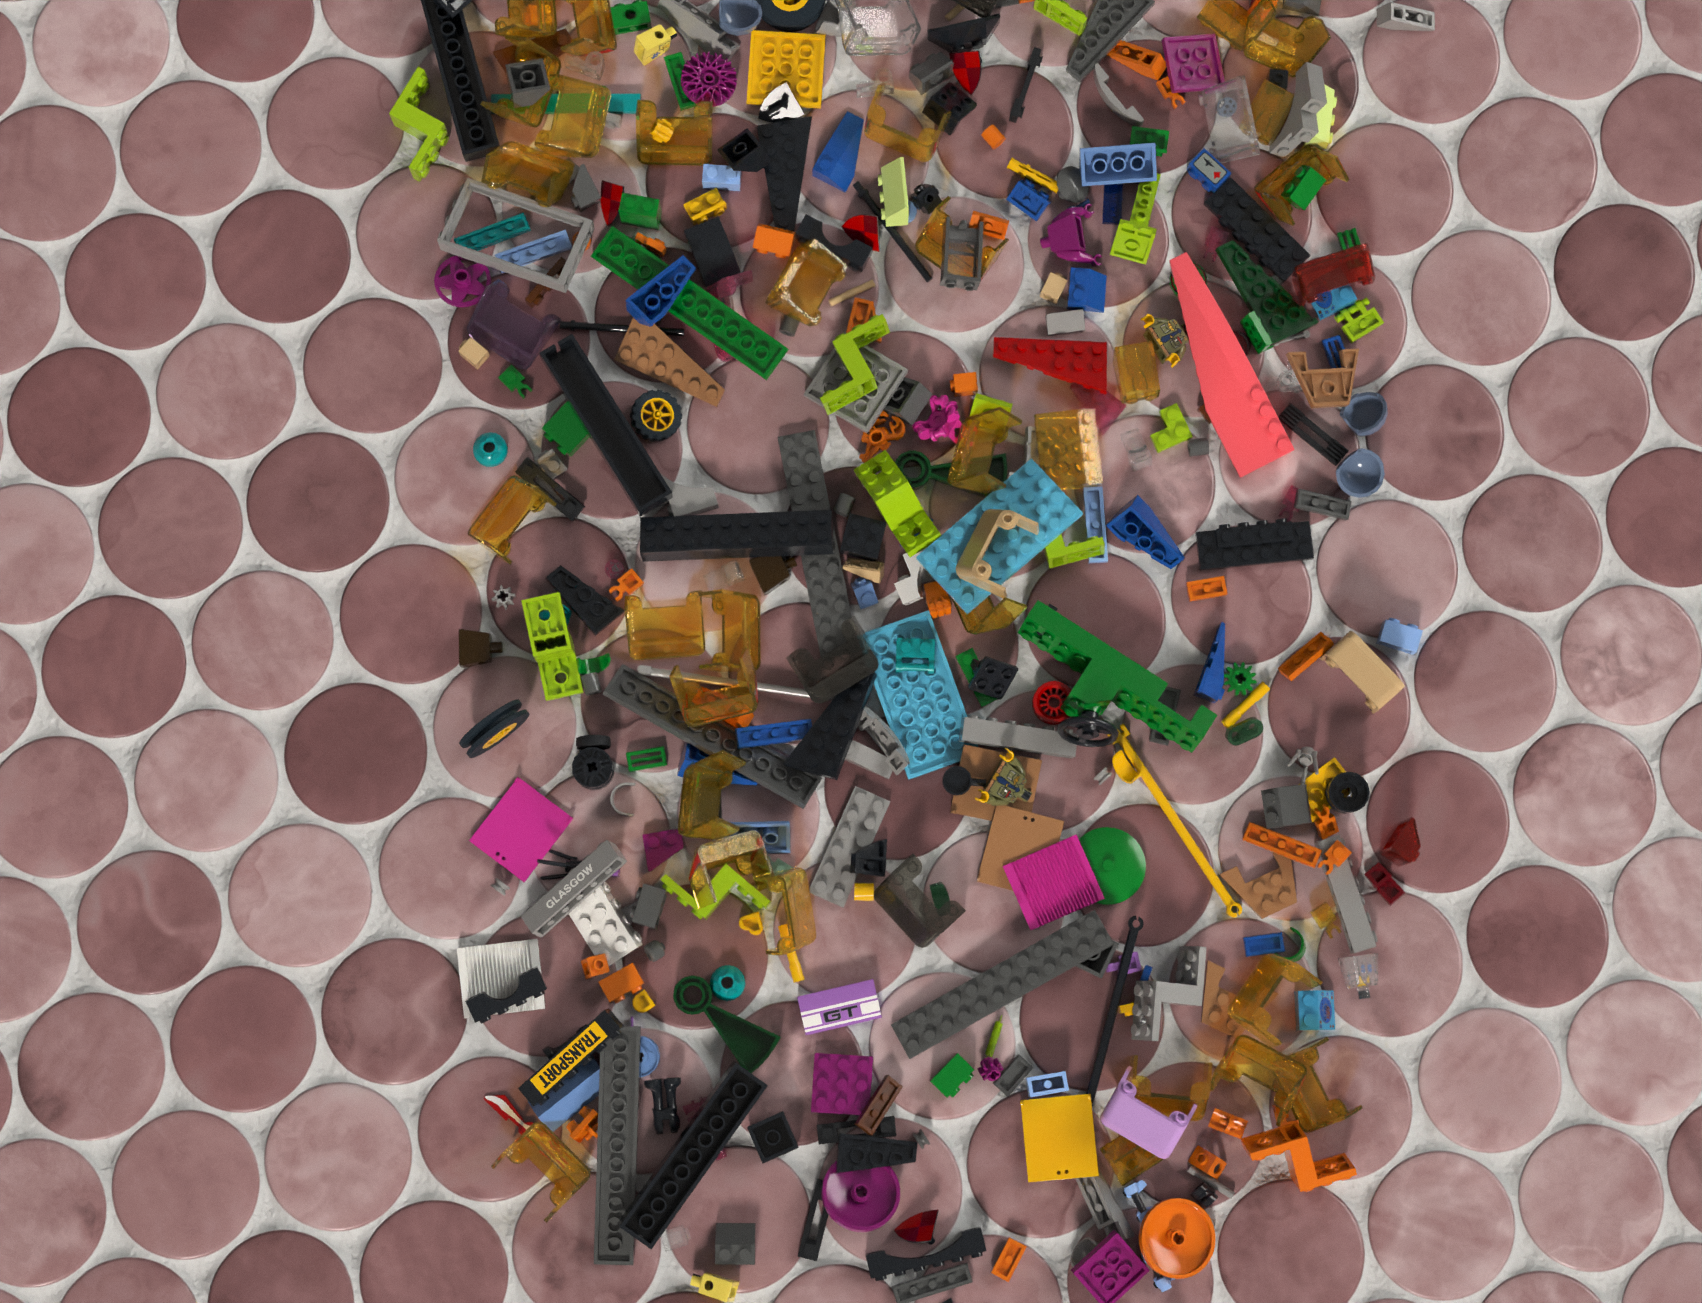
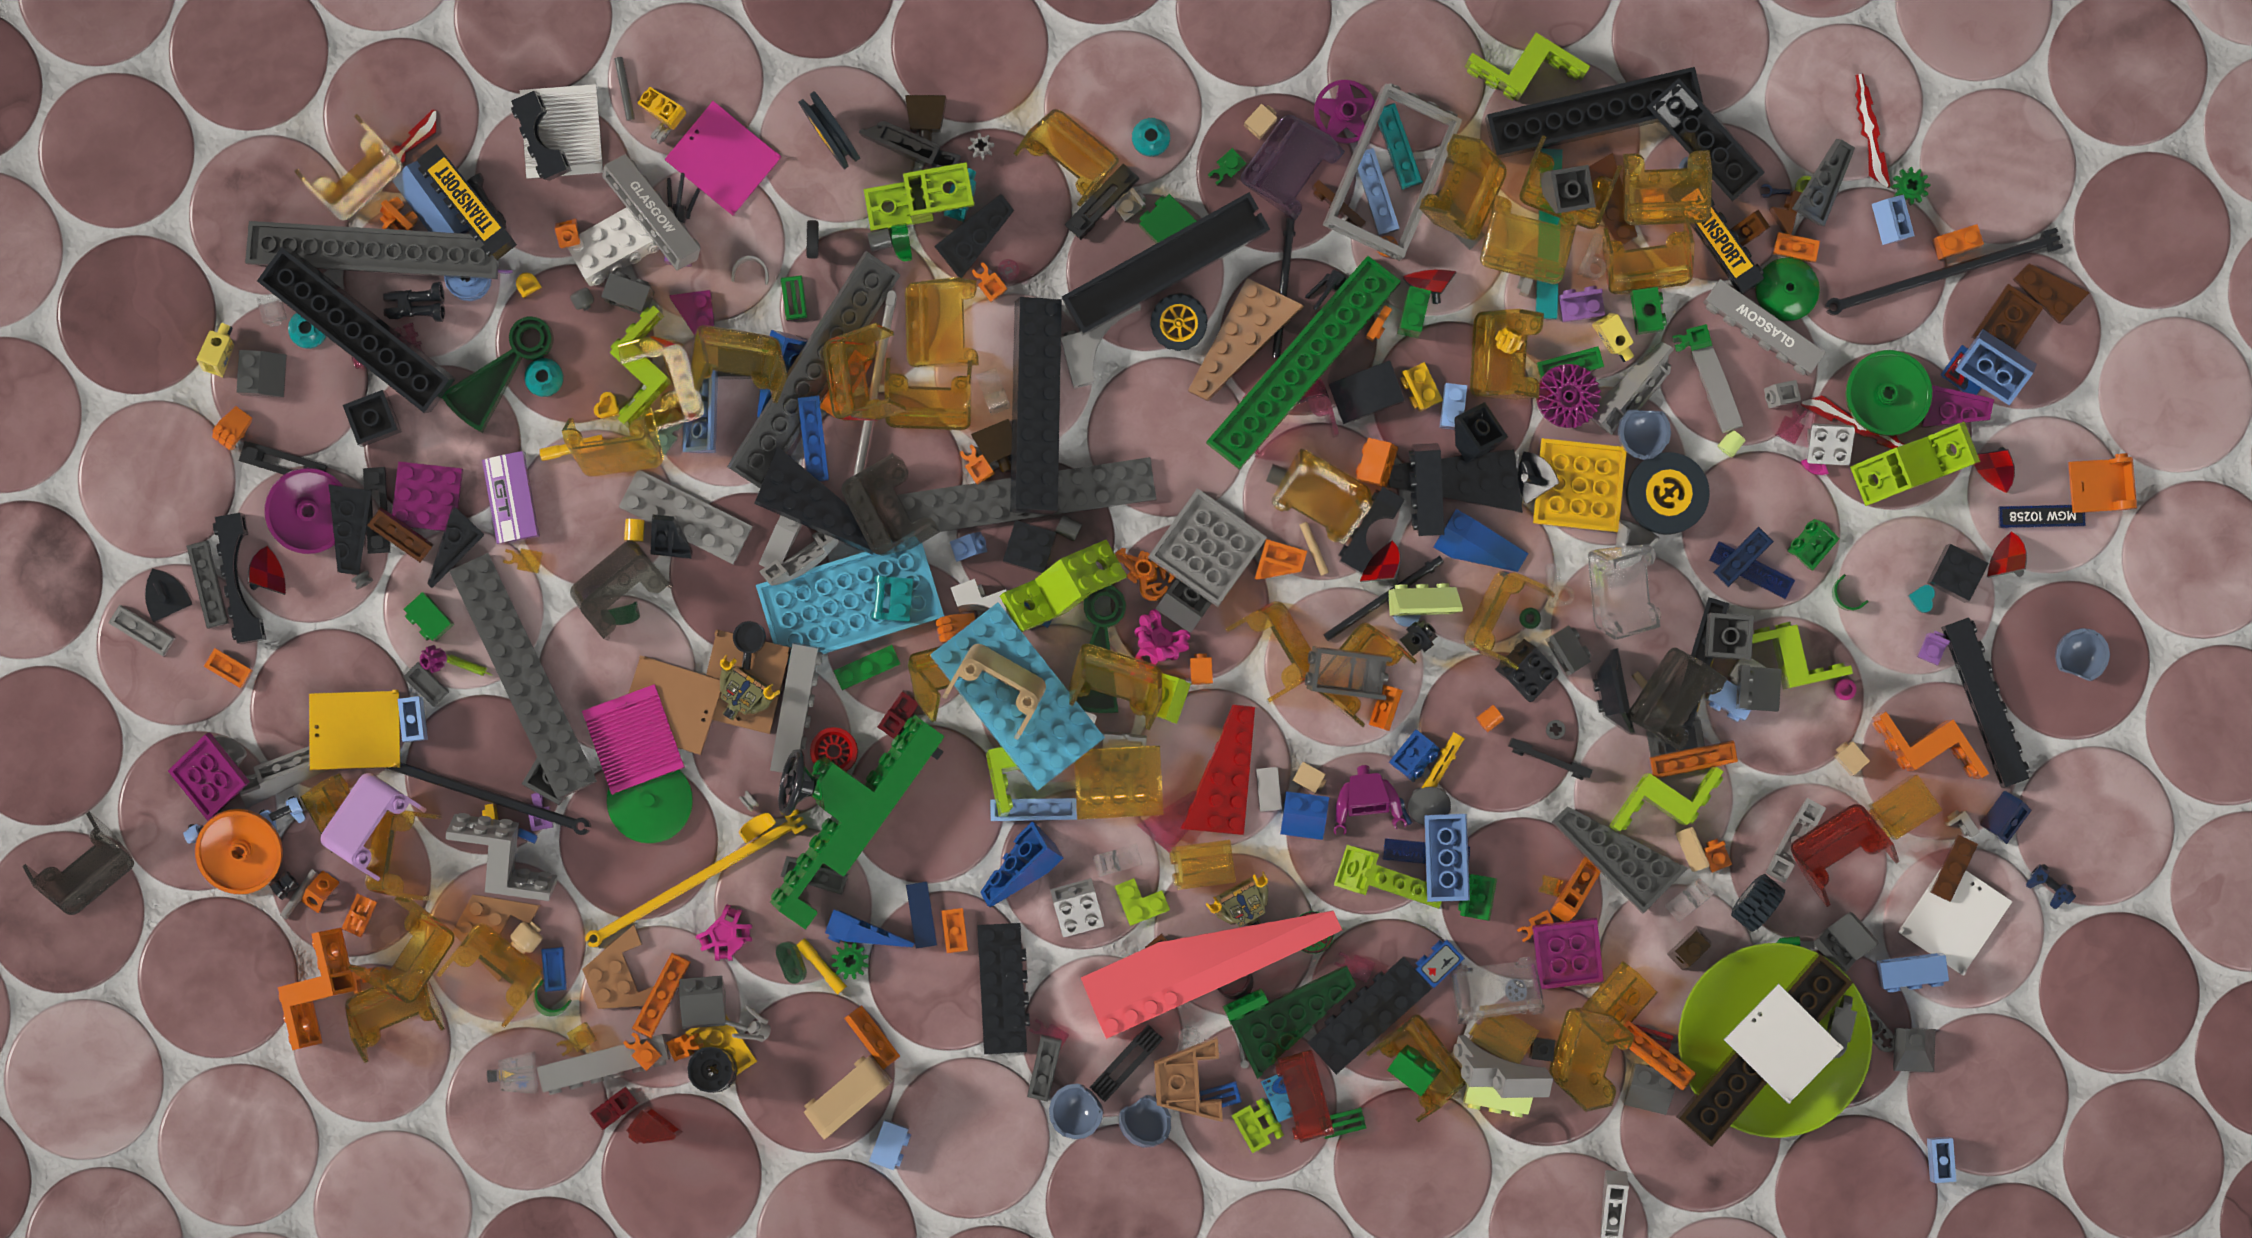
camera: 95 degrees right, 5 degrees up
(459, 922) = (624, 89): none -> dark grey bar
(476, 885) = (662, 108): none -> yellow slope
(505, 658) = (910, 145): none -> black wedge
(584, 191) = (1440, 250): dark grey slope -> none
(596, 779) = (786, 250): black wheel -> none
(614, 284) = (1334, 282): none -> black plant
(621, 983) = (548, 261): orange brick -> none
(628, 73) = (1581, 304): none -> medium lavender bracket
(658, 295) = (1308, 325): blue wedge -> none
(701, 1210) = (302, 340): none -> teal piece
(786, 1268) = (232, 428): none -> orange hand
(792, 586) = (978, 467): none -> orange plate
(797, 192) = (1428, 490): none -> black brick
(847, 349) = (1223, 544): lime bracket -> none
(867, 569) = (994, 548): tan slope -> none
(882, 1053) = (456, 541): none -> black wing
(895, 988) = (527, 560): none -> clear yellow plate
(903, 101) = (1535, 613): none -> dark green plate
(915, 321) = (1278, 618): none -> clear yellow windscreen
(967, 69) = (1570, 692): shield -> none
(992, 677) = (862, 681): black bracket -> none
(1004, 85) = (1551, 734): none -> dark grey bush
(1017, 647) = (898, 714): none -> dark red slope
(1128, 115) = (1509, 876): light grey slope -> none
(1135, 80) = (1550, 886): none -> clear yellow wheel
(1178, 482) = (1077, 907): none -> light grey bracket
(1194, 619) = (921, 915): none -> dark blue tile
(1198, 447) = (1117, 931): dark grey gear -> none
(1223, 791) = (725, 934): none -> dark pink piece
(1237, 969) = (526, 937): none -> tan head
(1314, 1010) = (477, 1021): dark azure slope -> none

